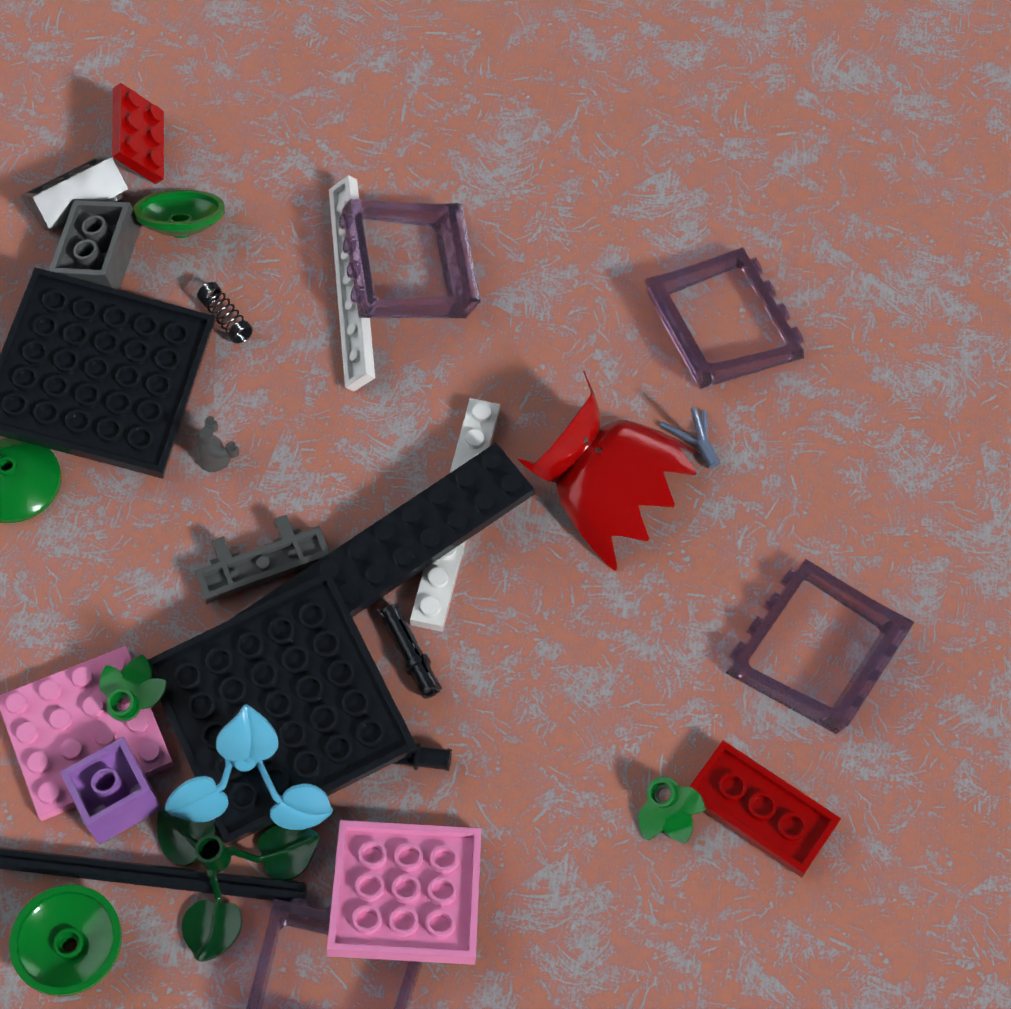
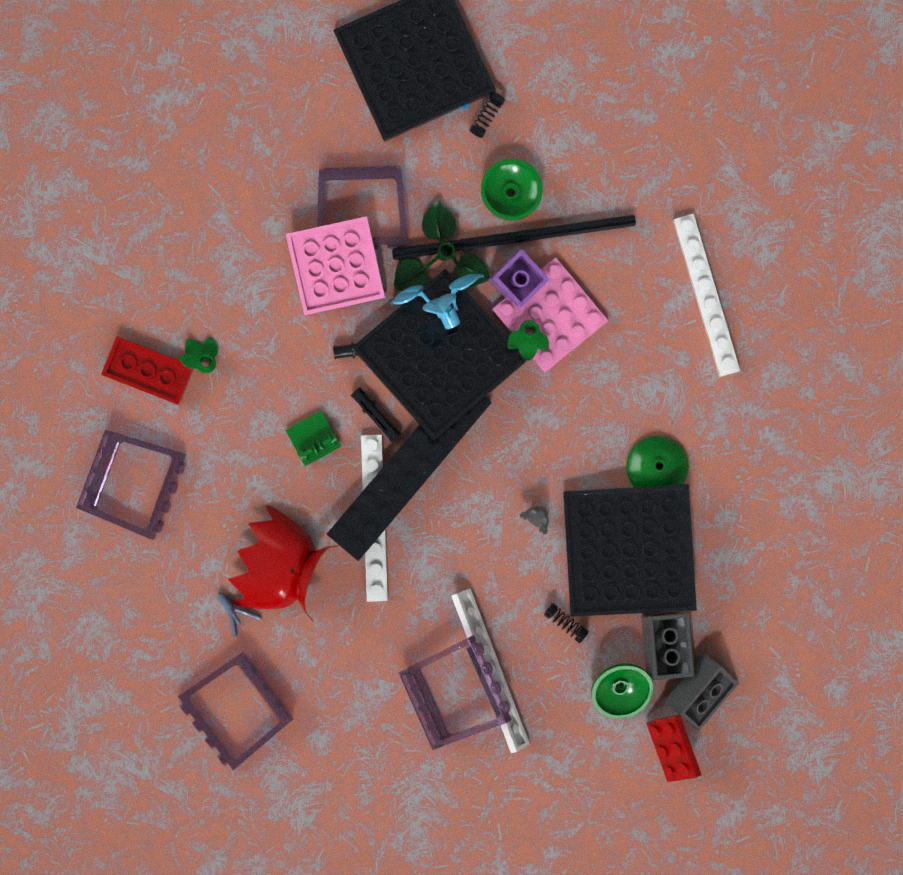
camera: 165 degrees right, 25 degrees up
(240, 572) = (467, 459): dark grey hinge -> none
(518, 642) = (313, 438): none -> green hinge

